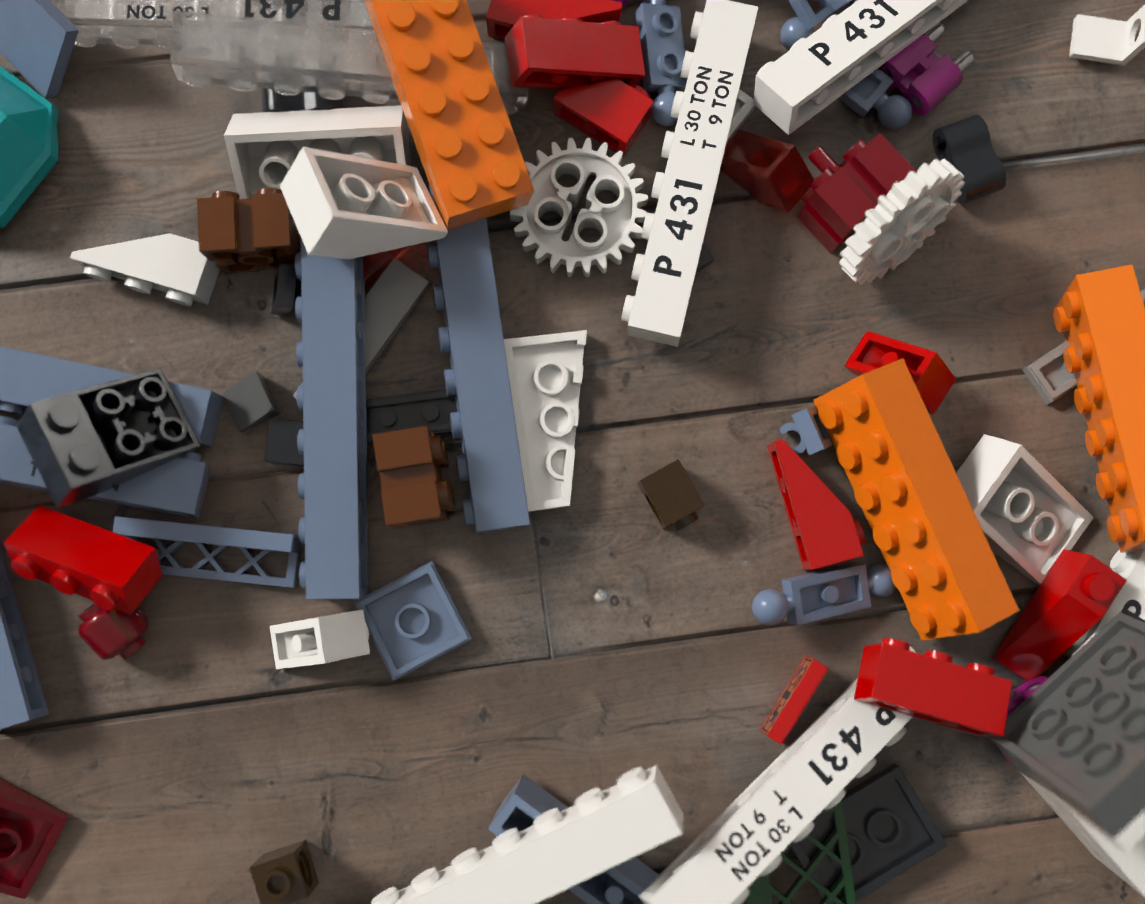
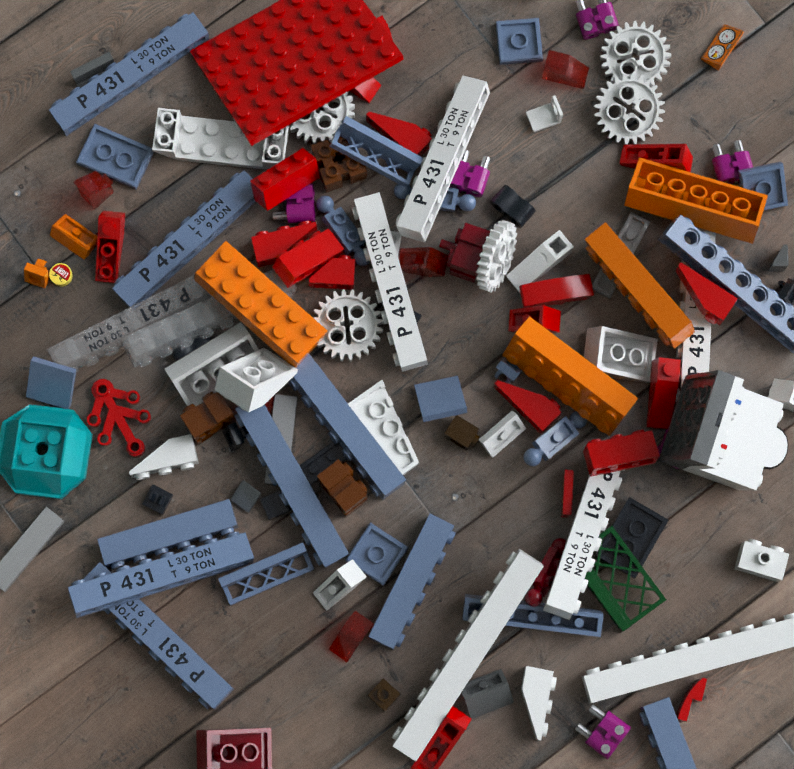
camera: 25 degrees left, 5 degrees down
(83, 560) = (215, 604): red brick -> none
(104, 326) = (157, 499): none -> black tile
(105, 435) = (198, 541): black slope -> none
(112, 631) = (243, 630): dark red head -> none
(116, 149) = (117, 414): none -> red plant
(291, 738) = (351, 636): none -> clear red slope
(440, 706) = (411, 582): none -> sand blue brick
(667, 417) = (440, 398): none -> sand blue tile
(698, 815) = (545, 578): none -> dark red plate
(739, 534) = (502, 434): none -> white plate
(969, 275) = (541, 260): none -> white slope
(969, 341) = (557, 291): none -> red slope

